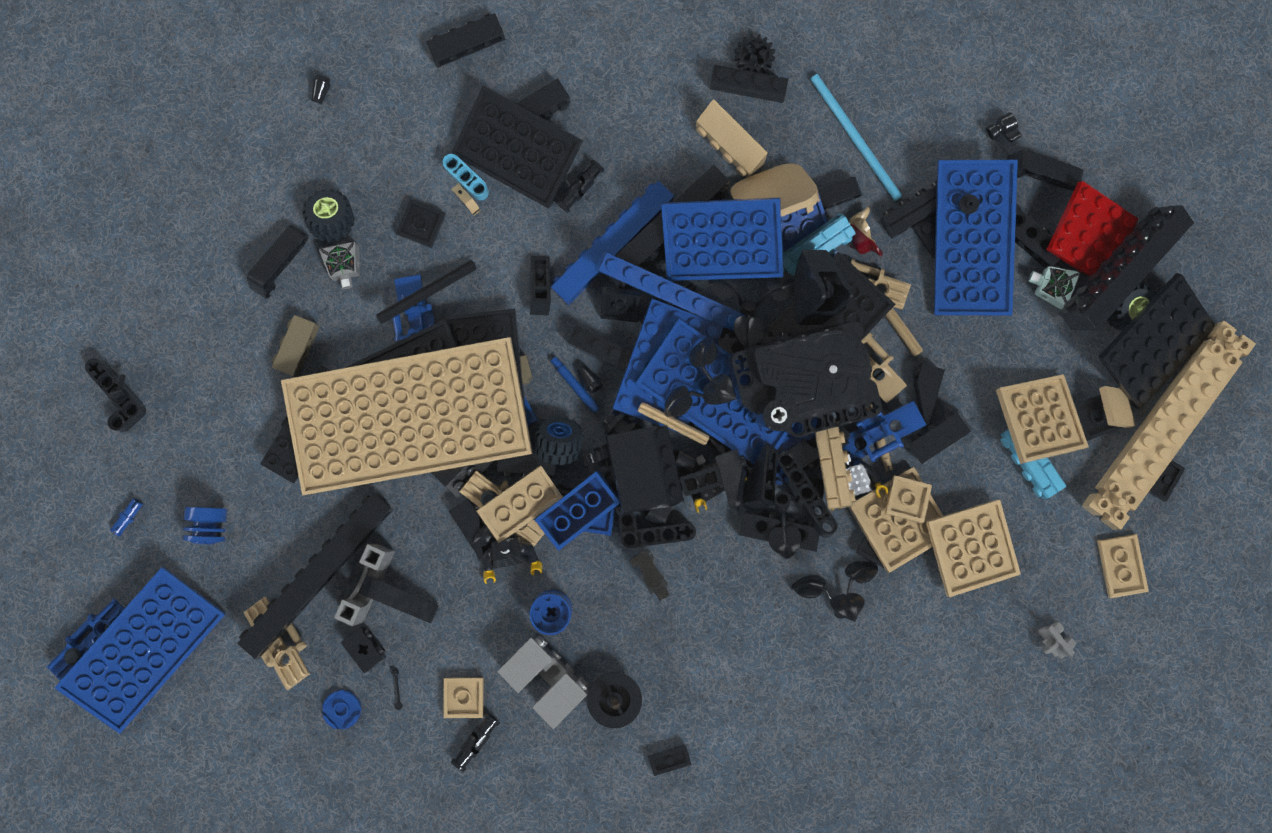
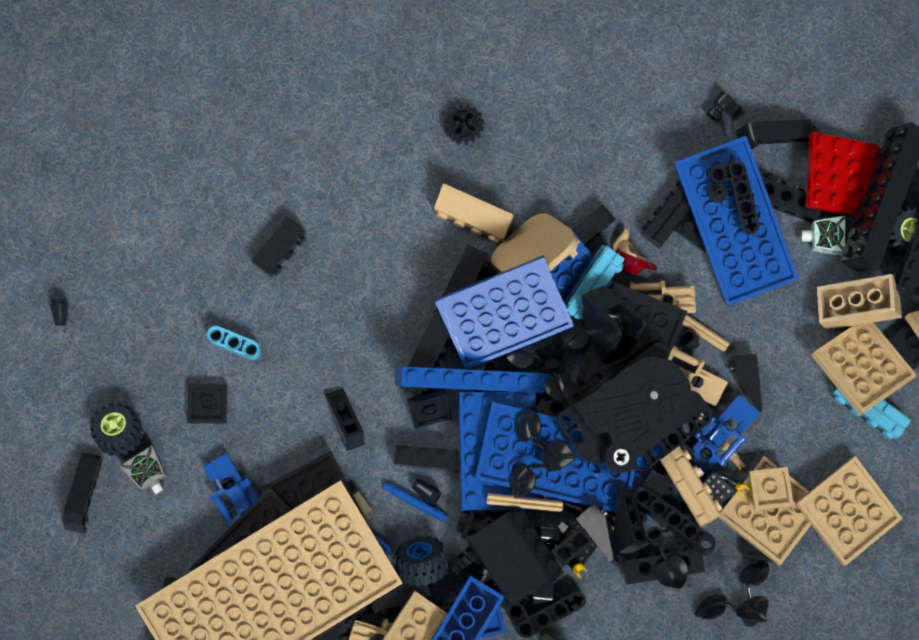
camera: 30 degrees left, 5 degrees down
(295, 346) = (131, 568): dark tan brick -> none
(425, 292) = (239, 468): black axle -> none
(465, 40) = (183, 212): black brick -> none
(466, 199) = (242, 363): tan piece -> none
(516, 147) = (272, 296): black plate -> none
(582, 184) = (345, 313): black piece -> none
(617, 236) = (398, 353): blue brick -> none
(748, 83) = (469, 154): black brick -> none
(856, 137) = (588, 166): medium azure piece -> none
(887, 332) = (690, 339): none -> black tile
(939, 436) = (776, 417): black wedge -> none
(986, 216) = (738, 199): none -> black beam
(1061, 357) = (858, 302): none -> tan slope

